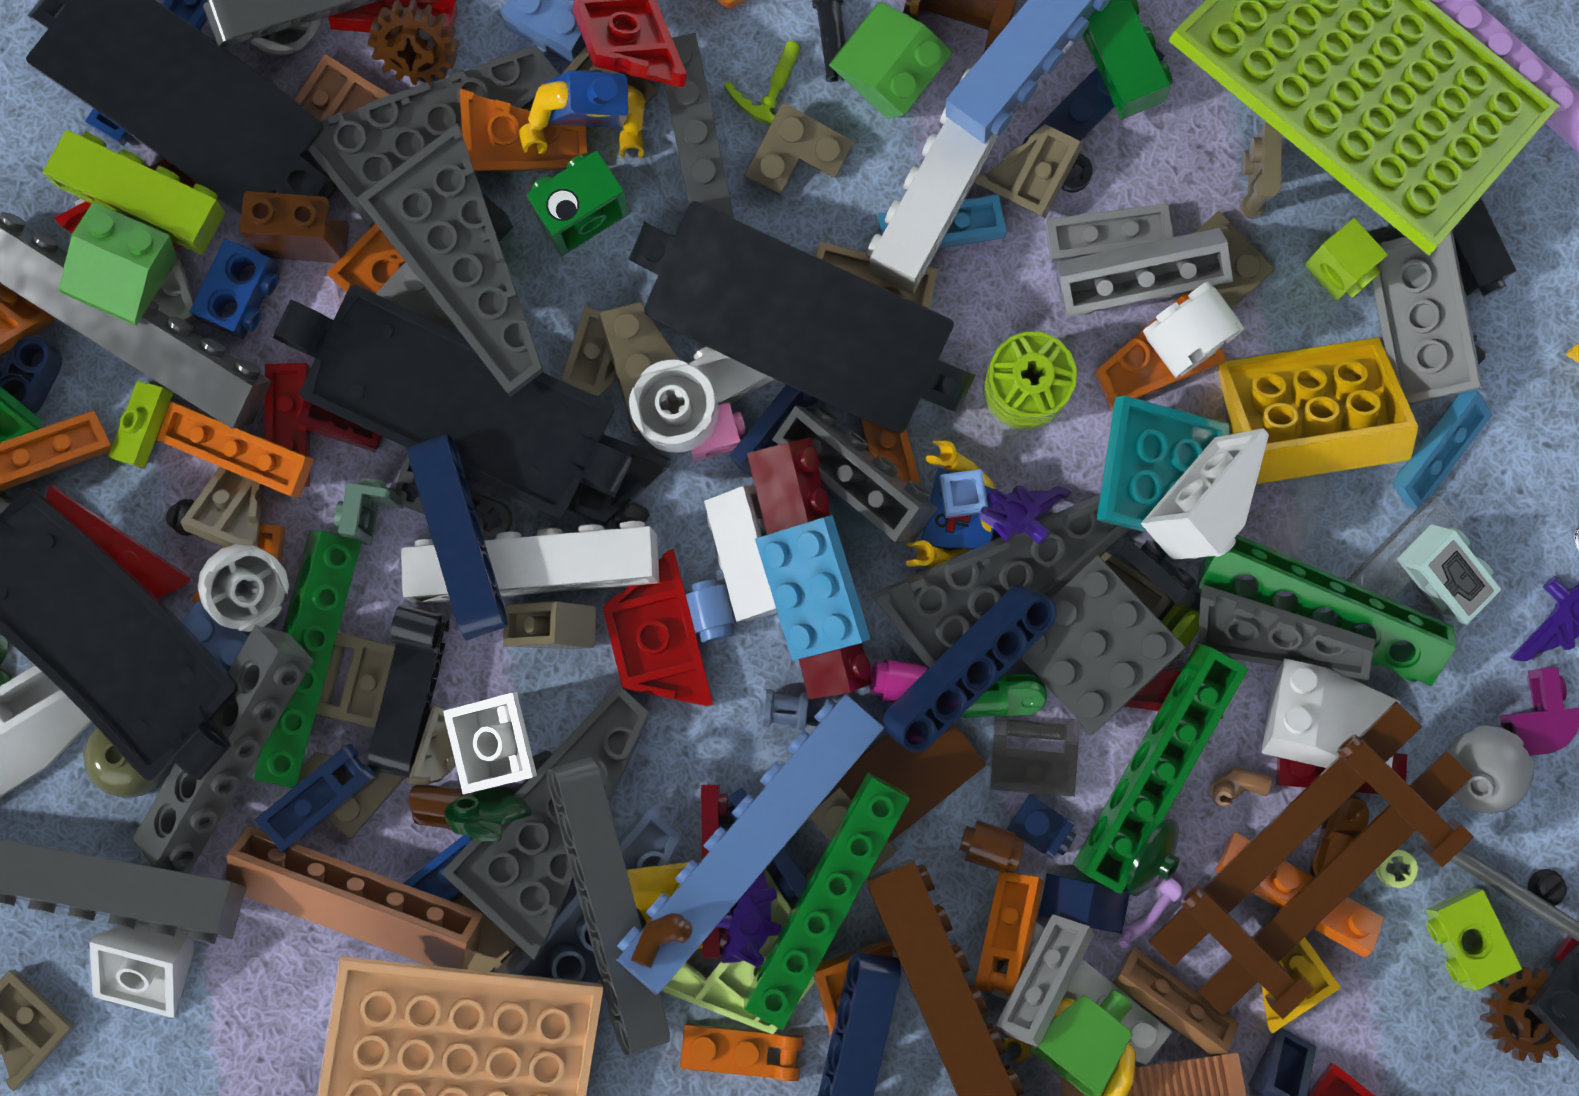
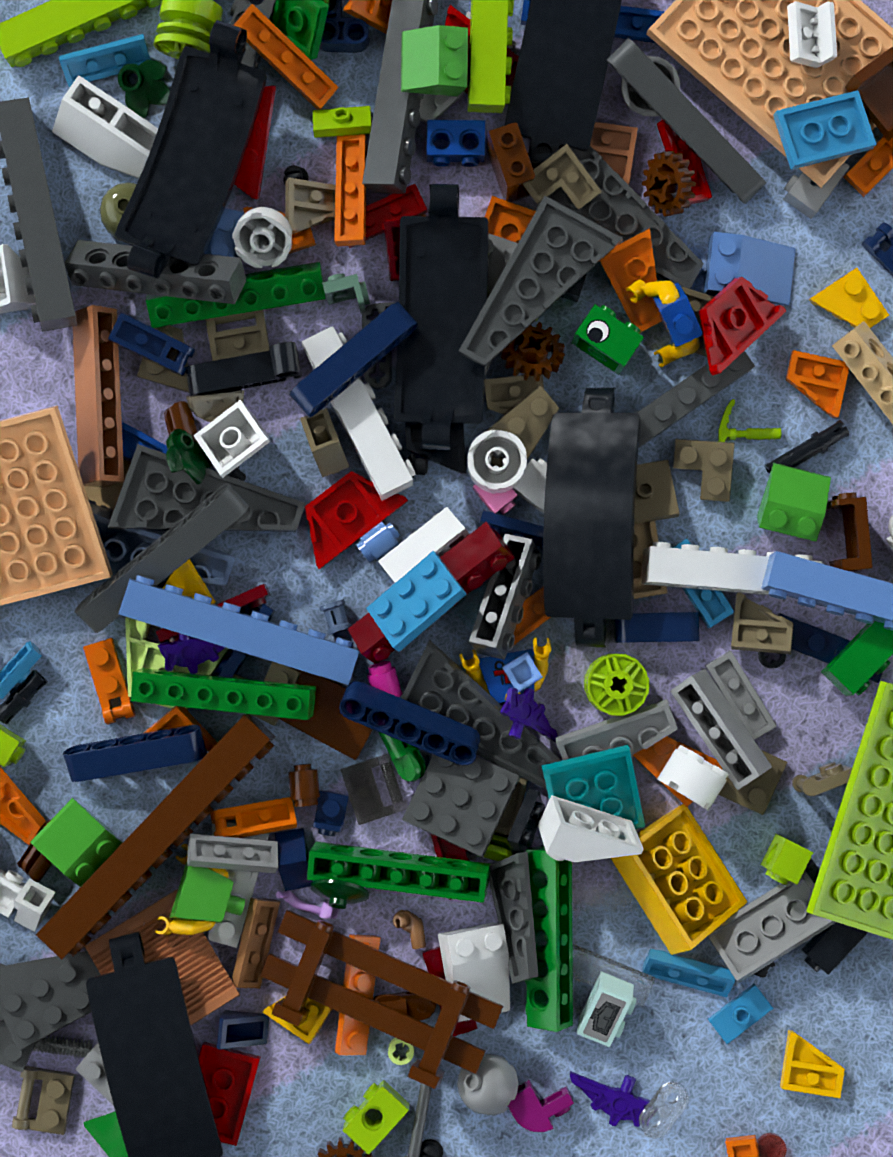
camera: 60 degrees right, 5 degrees up
(340, 161) = (563, 171): none -> dark tan plate
(553, 306) = (533, 352): none -> reddish brown gear
(660, 932) = (155, 598): reddish brown arm -> none
(804, 225) = (654, 493): none -> dark tan plate
(978, 298) = (658, 627): none -> dark blue beam
(1099, 379) = (635, 729): none -> light grey wing
(1520, 406) = (740, 1013): none -> dark azure plate

